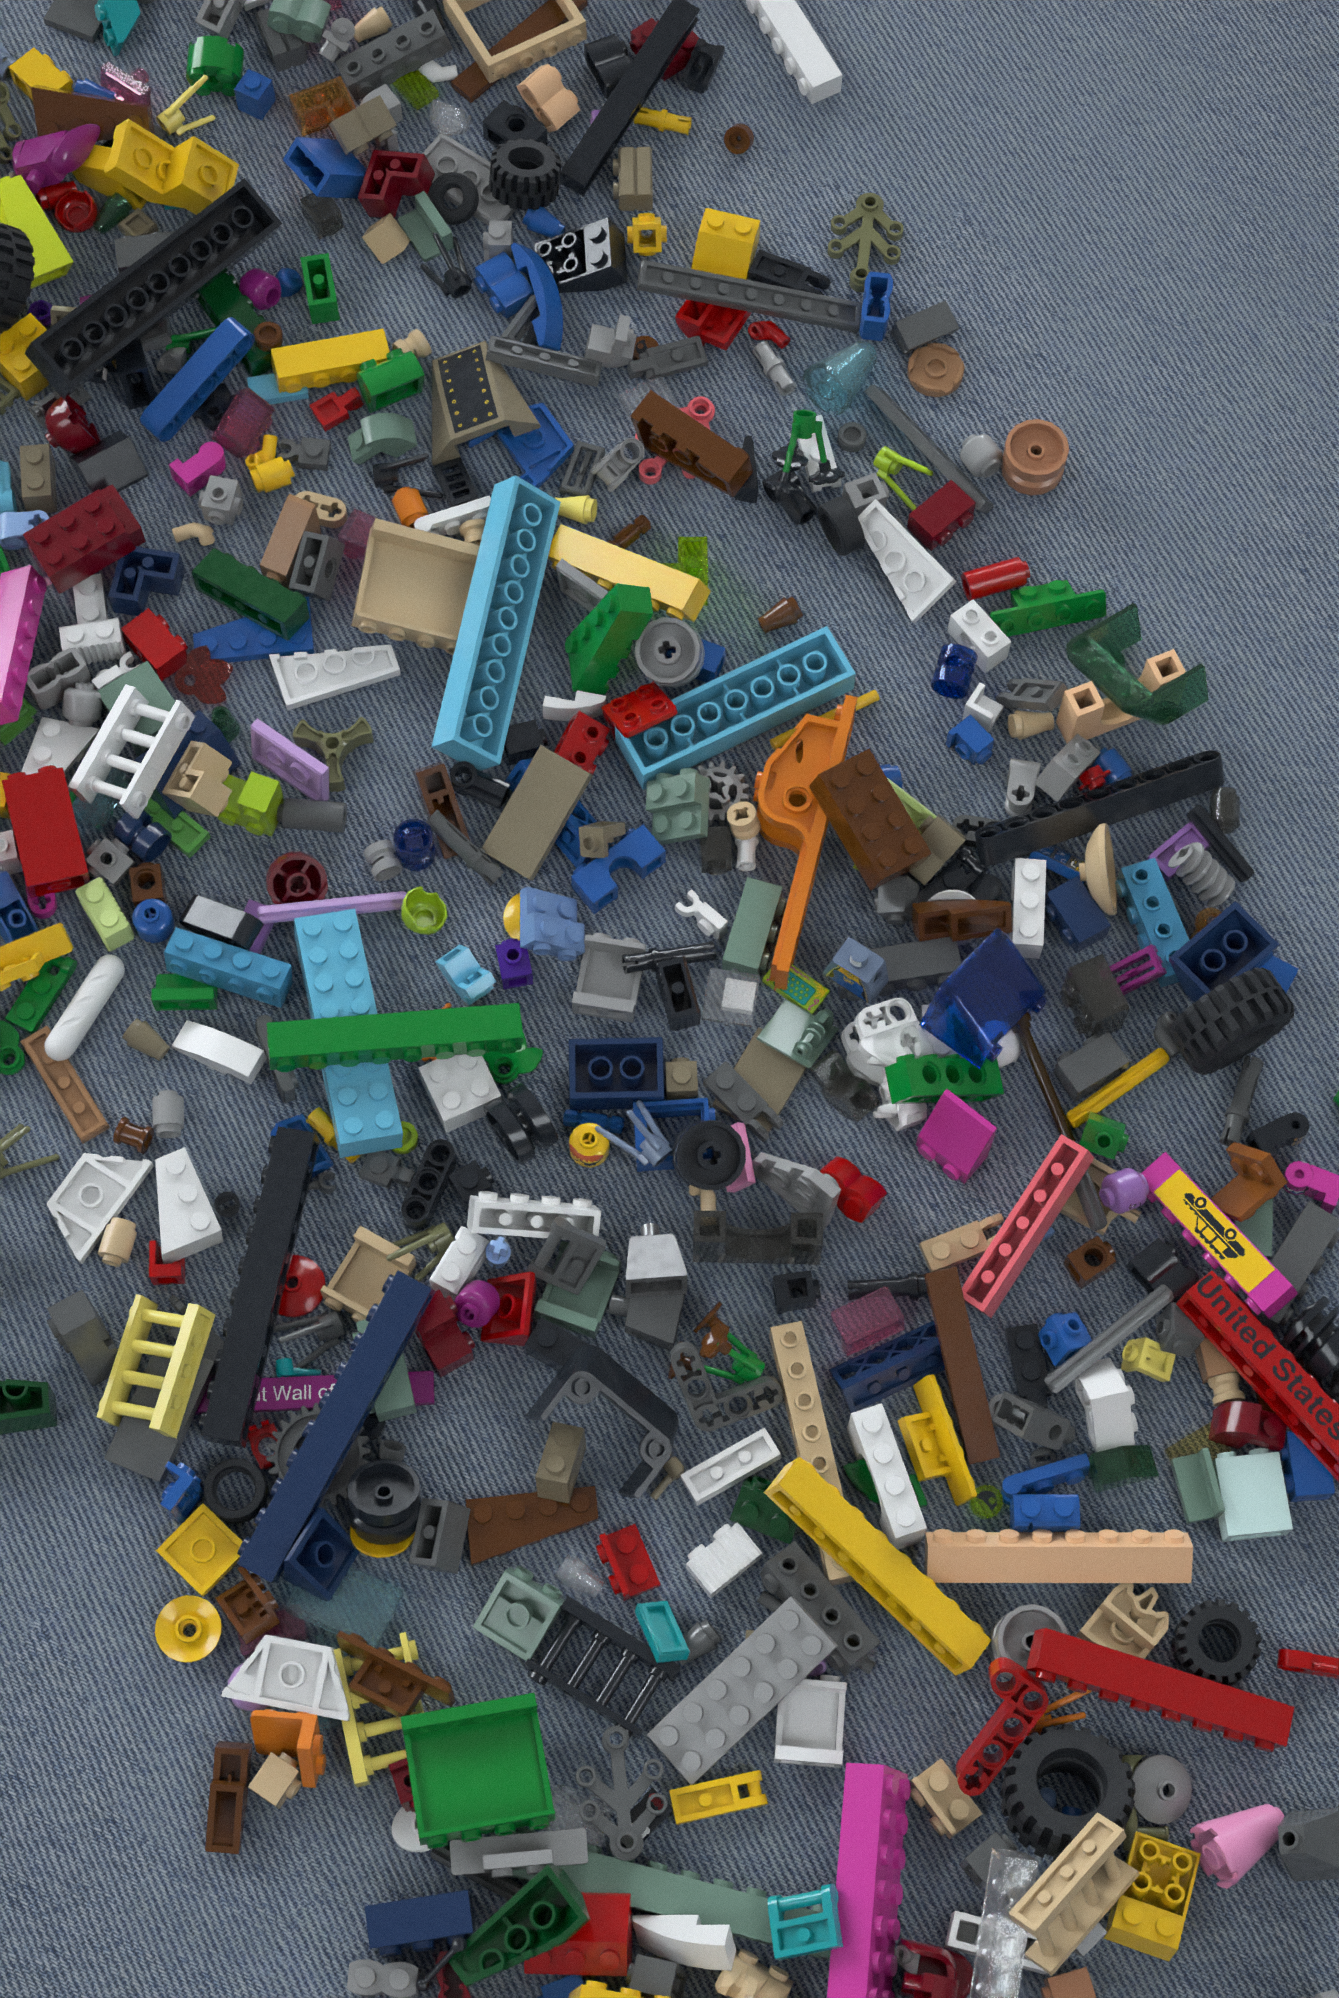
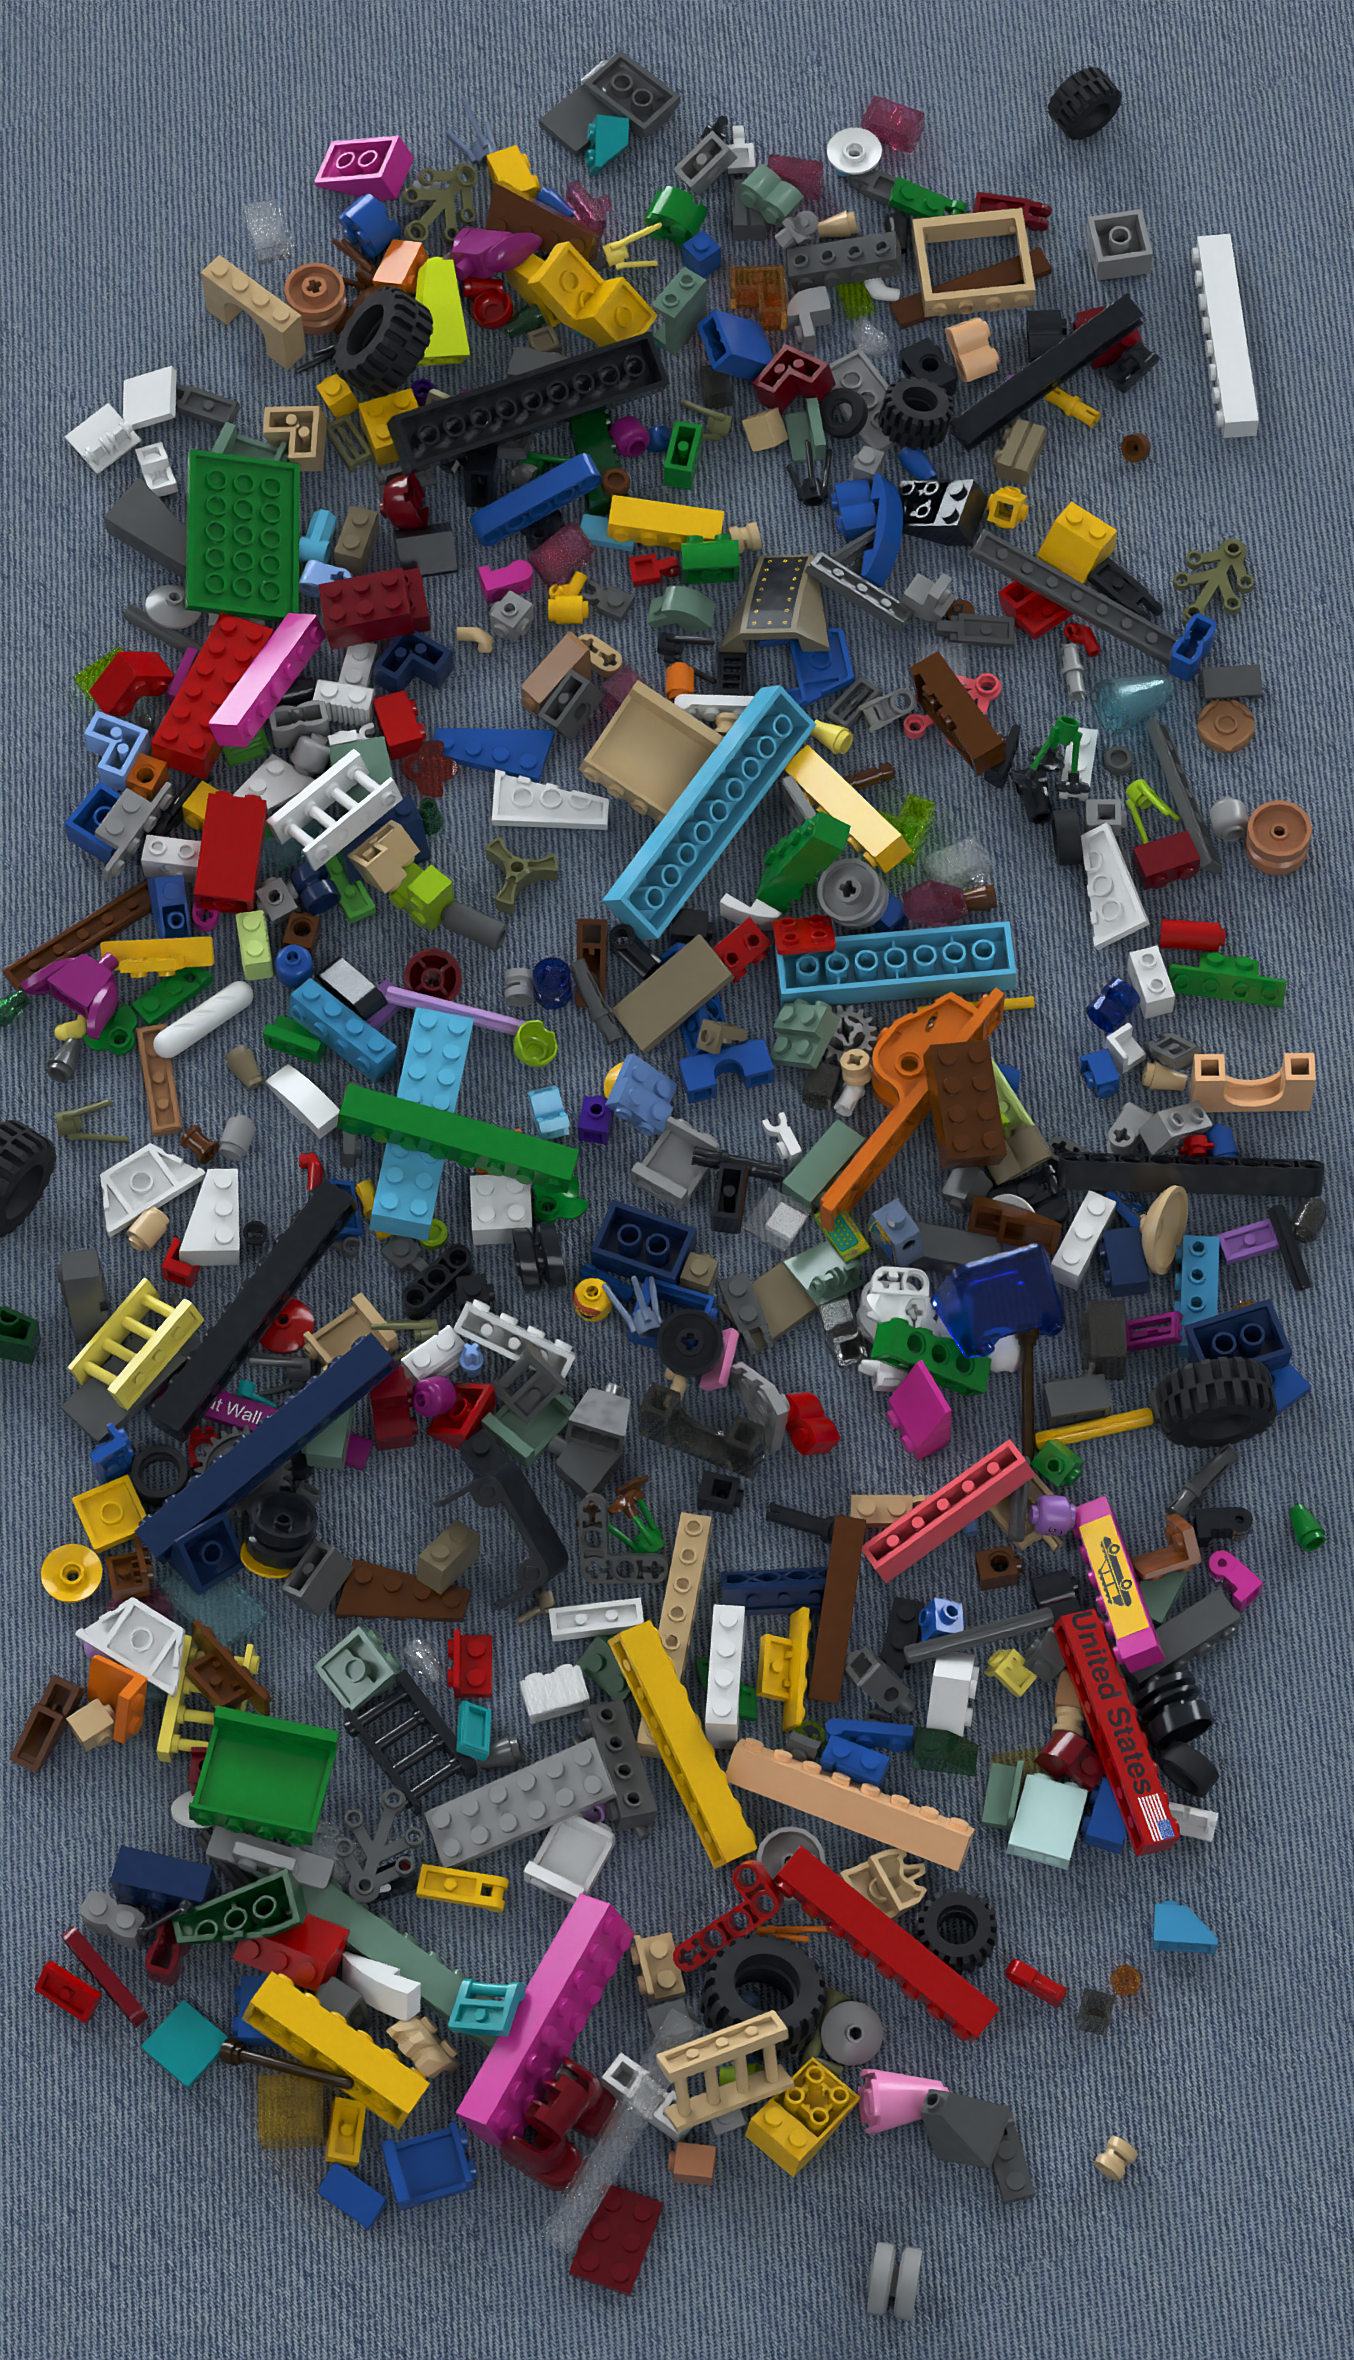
camera: 25 degrees right, 5 degrees down
(45, 647) = (299, 692): none -> black brick
(251, 594) = (502, 709): dark green brick -> none
(259, 1117) = (314, 1167): none -> red arm
(262, 146) = (683, 306): none -> sand green panel
(289, 762) = (471, 870): lavender tile -> none
(339, 247) = (718, 423): none -> olive plant
(363, 125) = (783, 319): dark tan brick -> none
(748, 634) = (934, 904): none -> clear pink brick
(750, 591) = (959, 864): none -> clear brick
(868, 1320) = (772, 1542): clear pink panel -> none
(987, 1518) = (802, 1747): none -> dark grey plate
(1099, 659) = (1253, 1040): clear green windscreen -> none
(1203, 873) = (1258, 1266): light grey piece -> none

